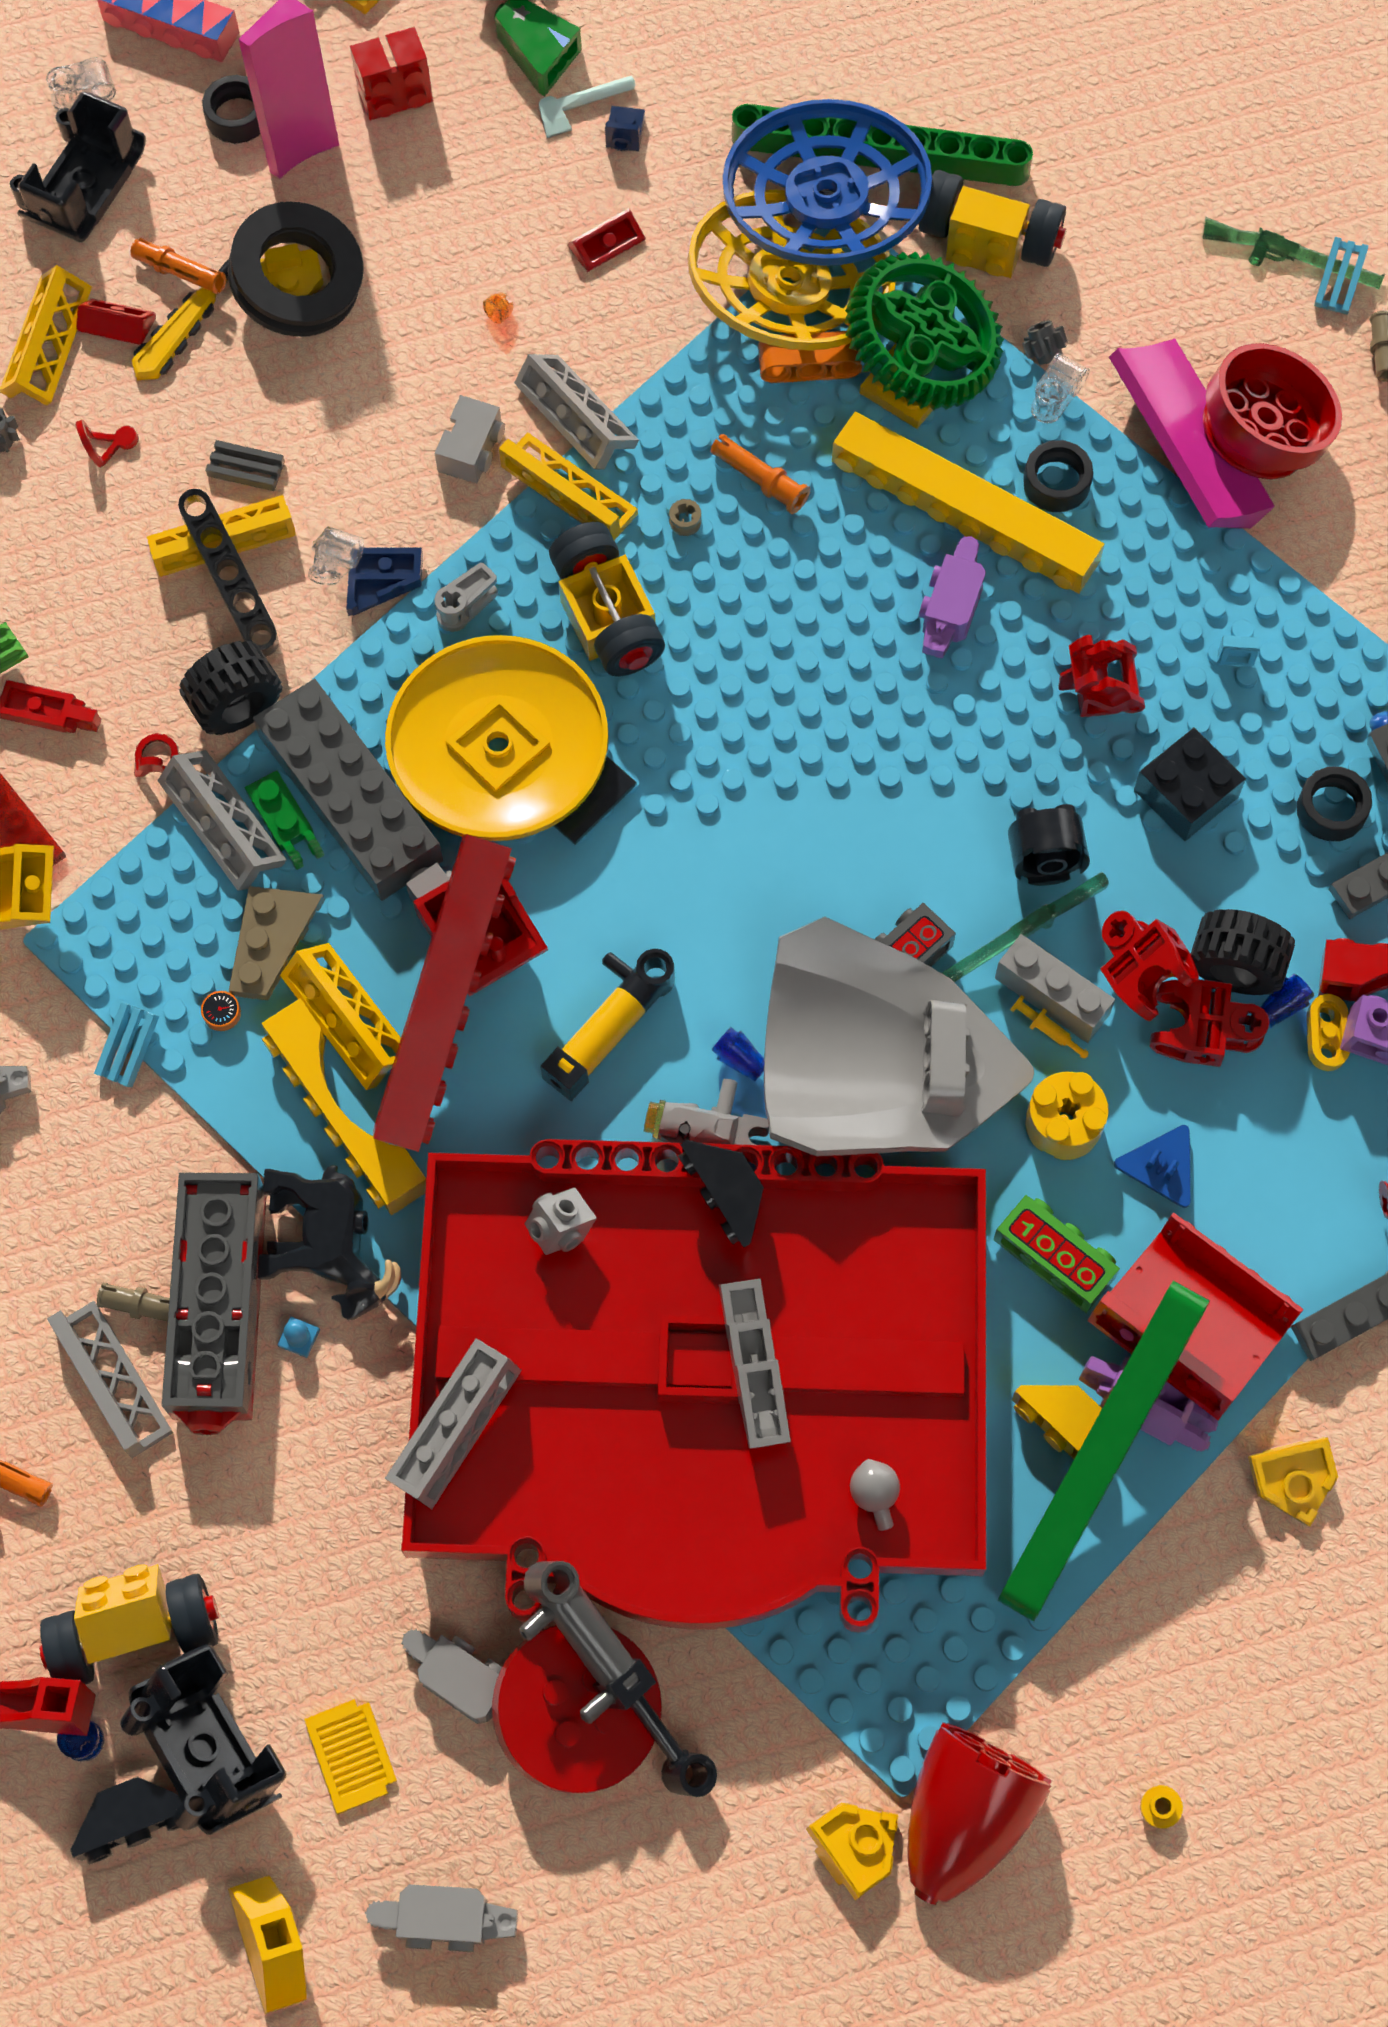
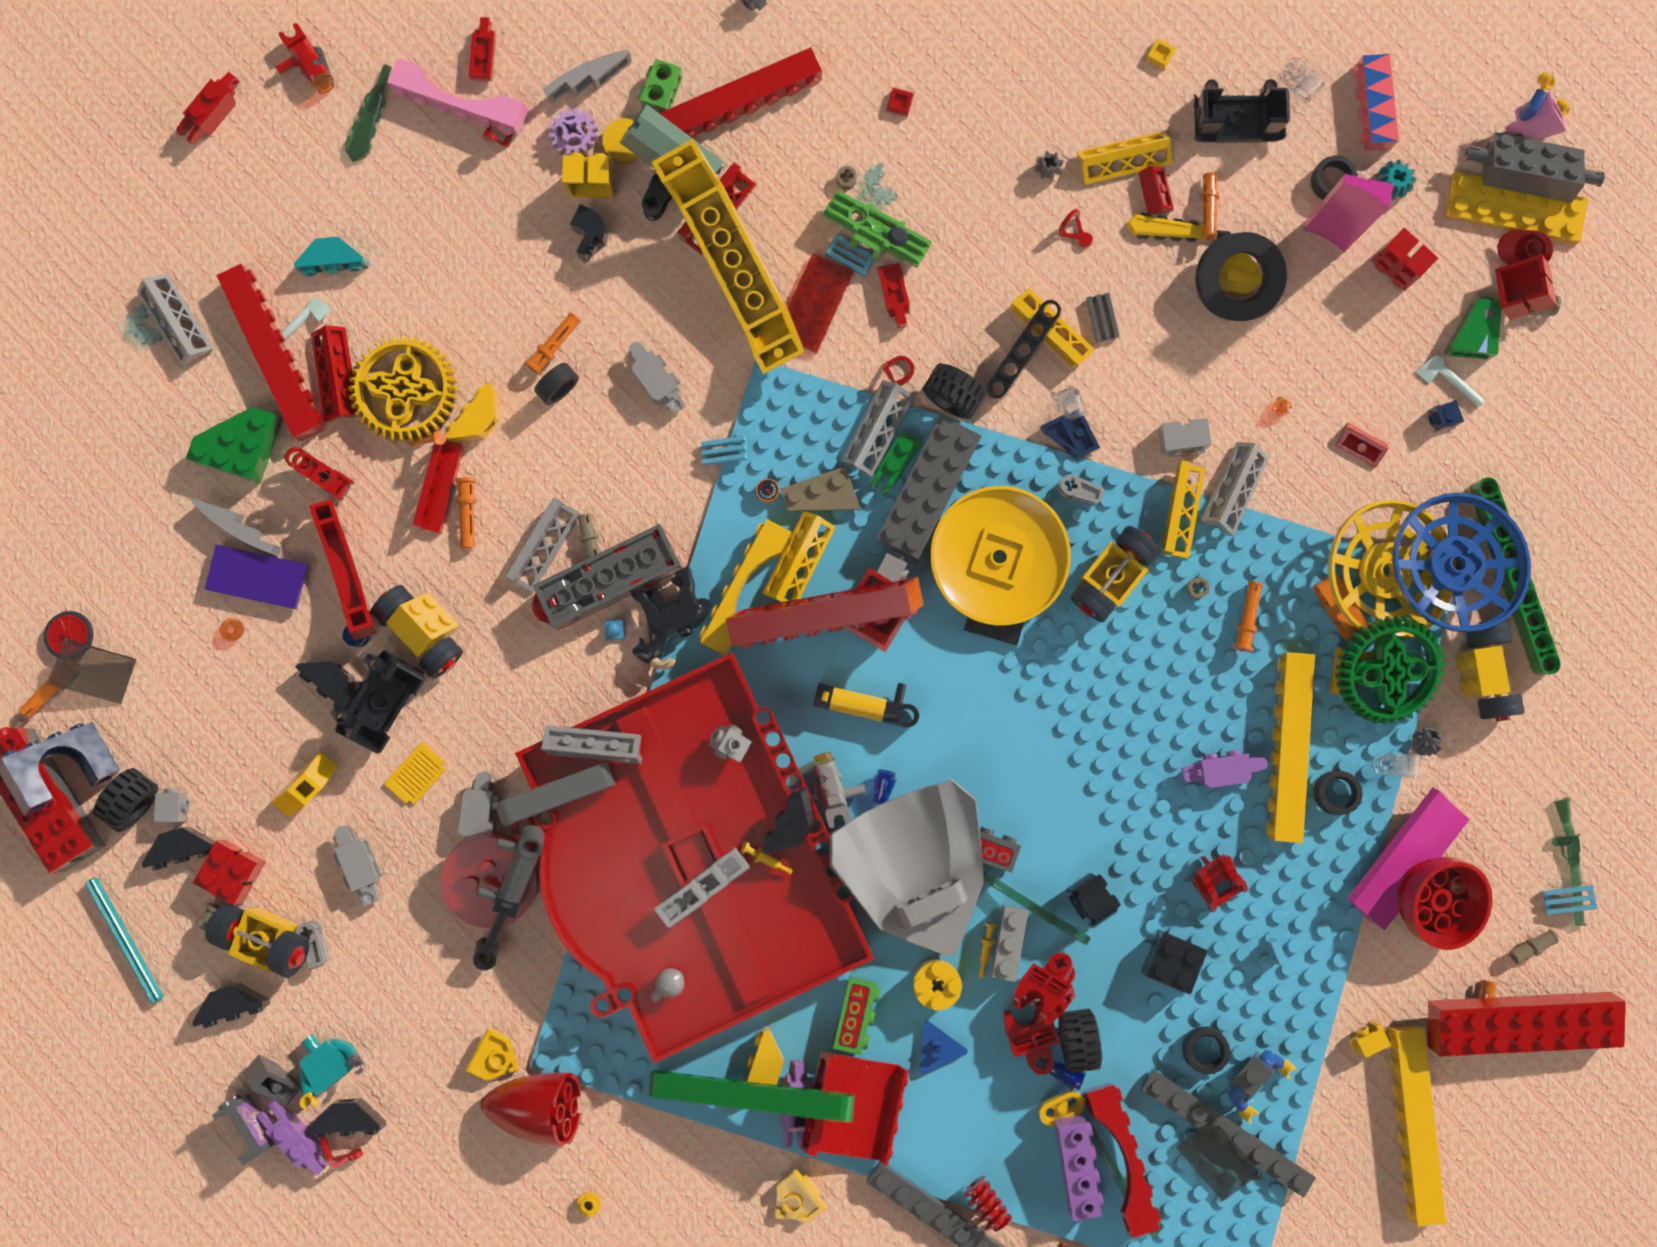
camera: 60 degrees right, 15 degrees up
(497, 1514) = (555, 794): none -> dark grey beam
(751, 1258) = (764, 858): none -> yellow piece

